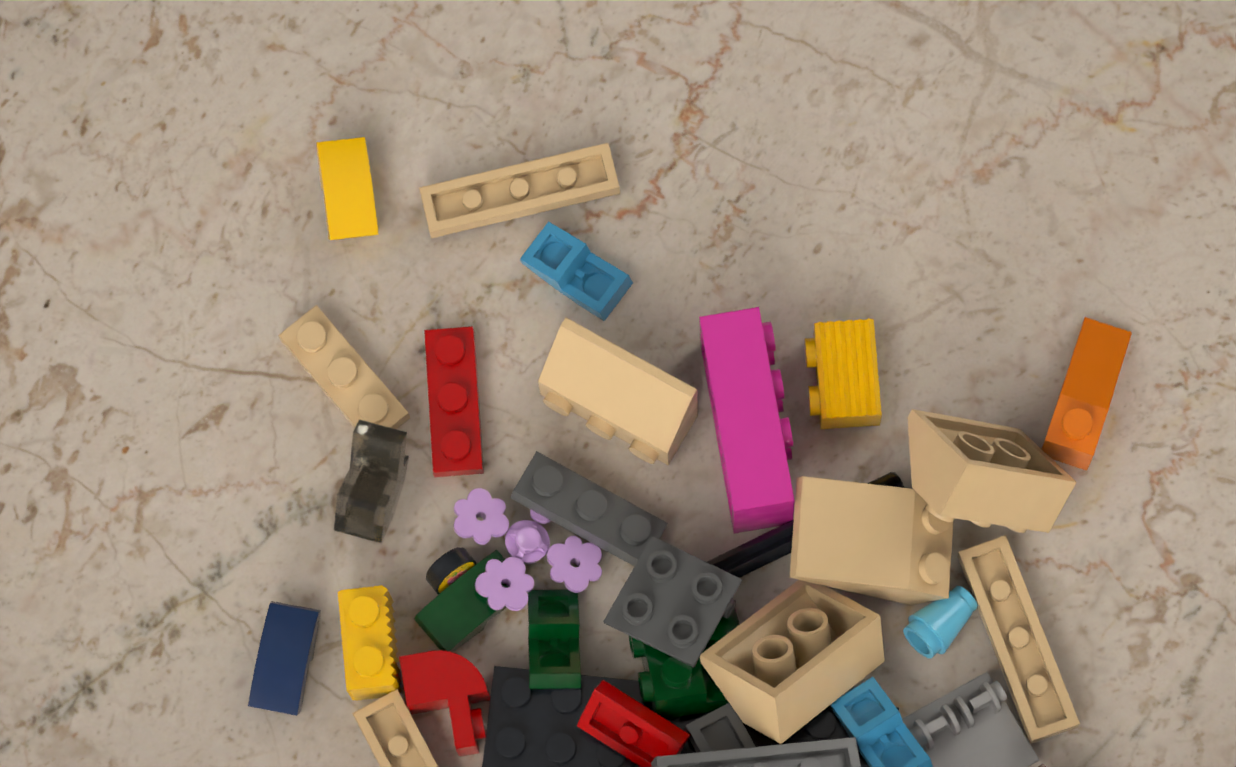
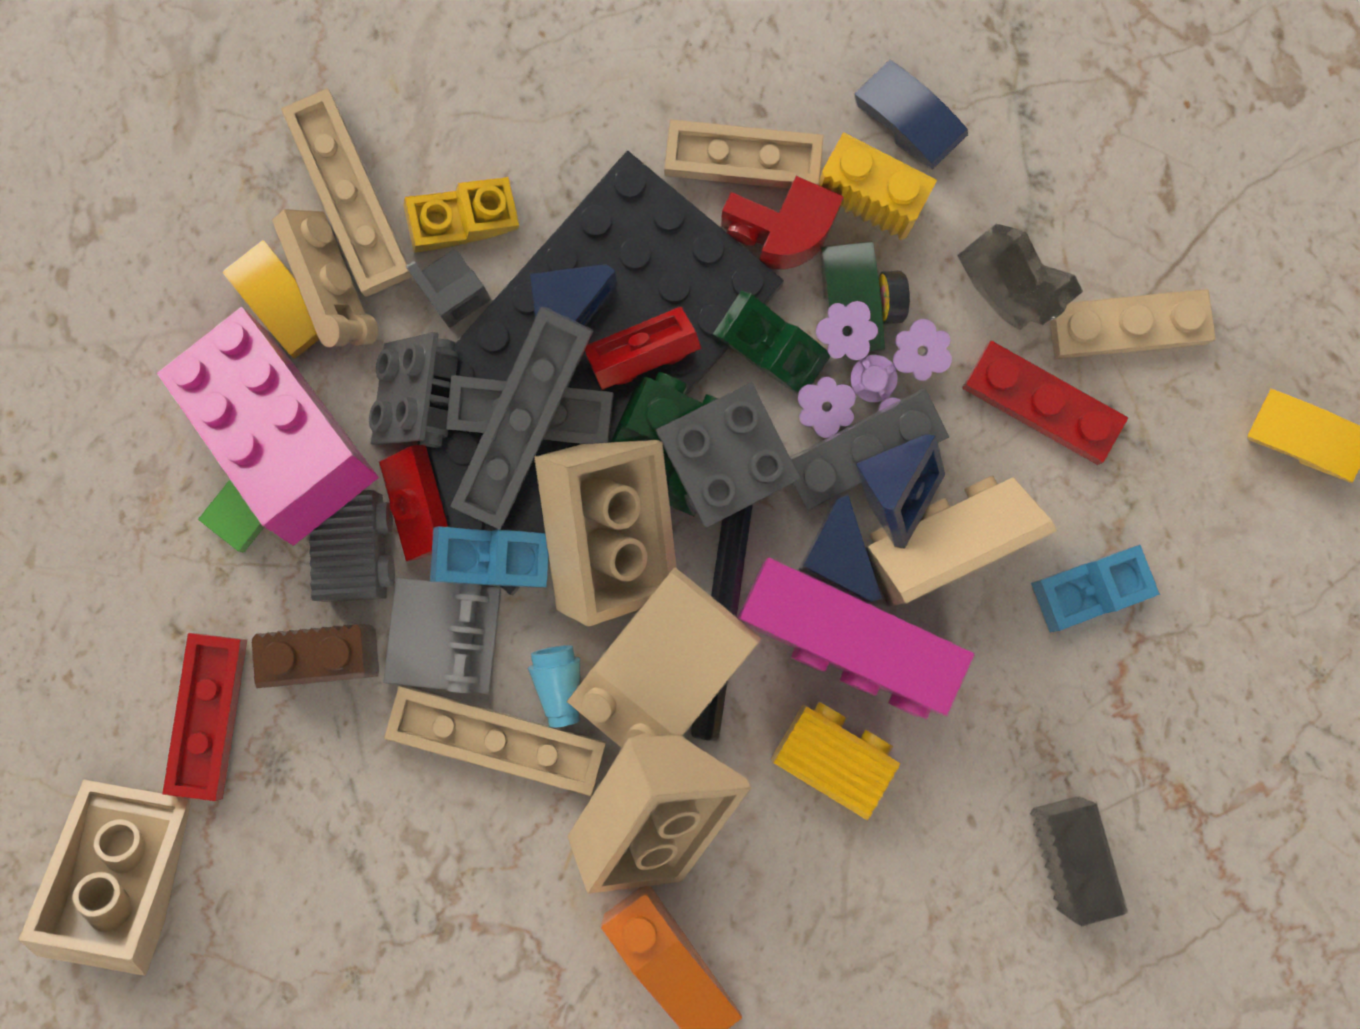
camera: 120 degrees right, 10 degrees up
(519, 190) = (1207, 589): tan plate -> none
(603, 459) = (902, 485): none -> dark blue slope
(685, 476) = (840, 554): none -> dark blue slope
(791, 154) = (1079, 860): none -> clear smoke brick

